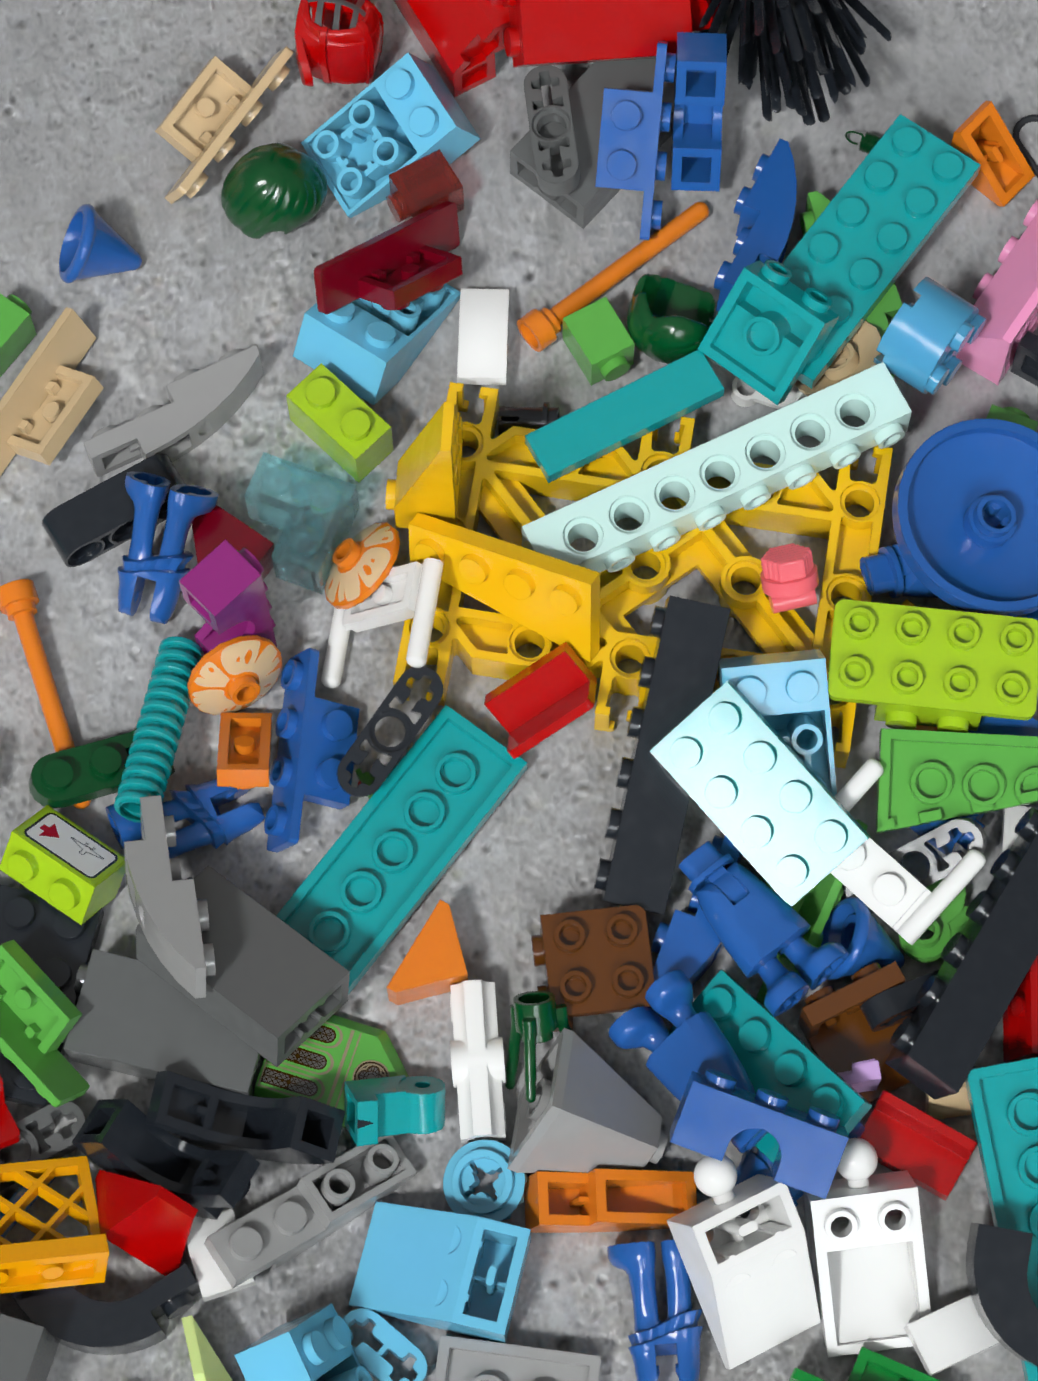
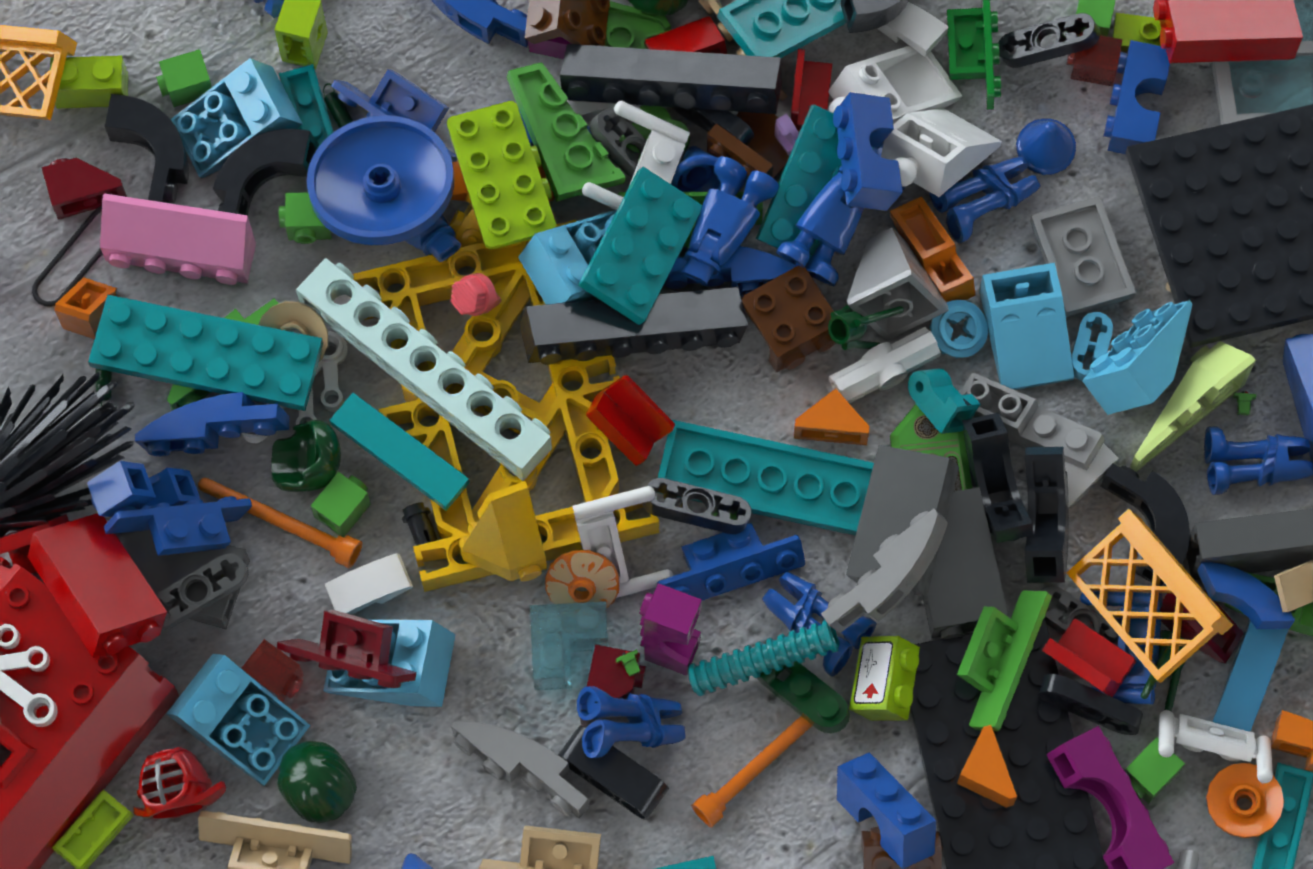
camera: 115 degrees left, 0 degrees up
(144, 1220) = (1090, 516): red slope -> none
(234, 674) = (709, 626): dish -> none
(244, 750) = (749, 599): orange plate -> none
(340, 422) = (480, 648): lime brick -> none
(520, 583) = (561, 457): yellow wing -> none
(769, 329) = (302, 370): teal plate -> none
(928, 336) = (263, 268): dark azure brick -> none

